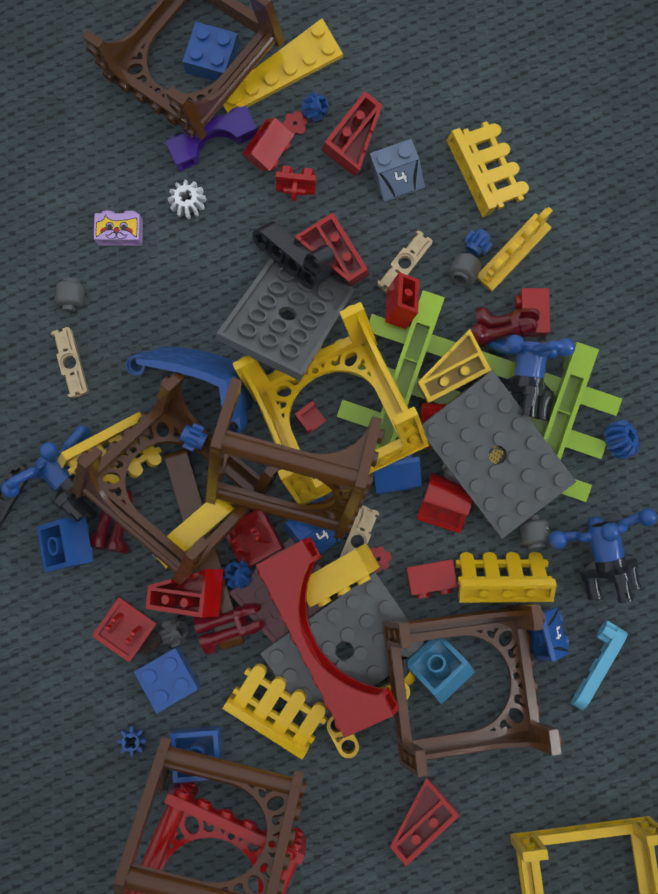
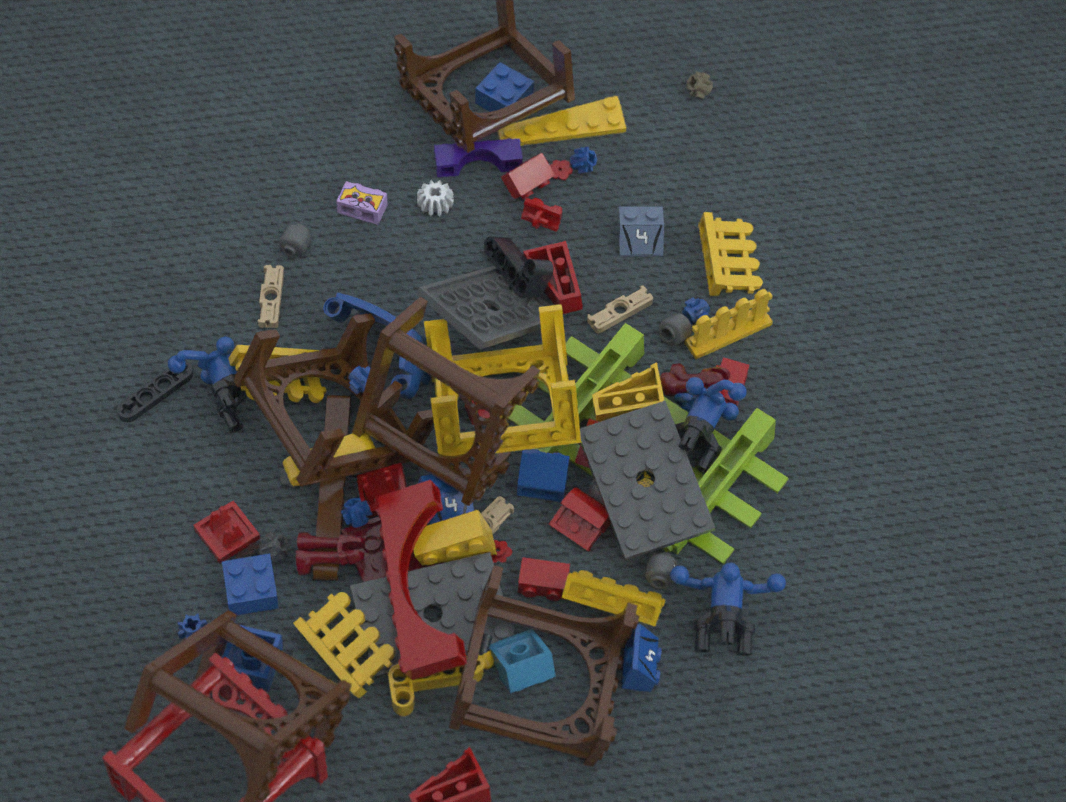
camera: 15 degrees right, 25 degrees down
(64, 544) = (203, 435): blue brick -> none
(116, 541) = (250, 454): dark red piece -> none
(194, 597) = (302, 510): red wedge -> none
(352, 135) = (610, 190): red wedge -> none
(402, 300) = (603, 330): red brick -> none
(613, 641) = (705, 690): medium azure beam -> none
(621, 439) = (776, 514): blue gear -> none

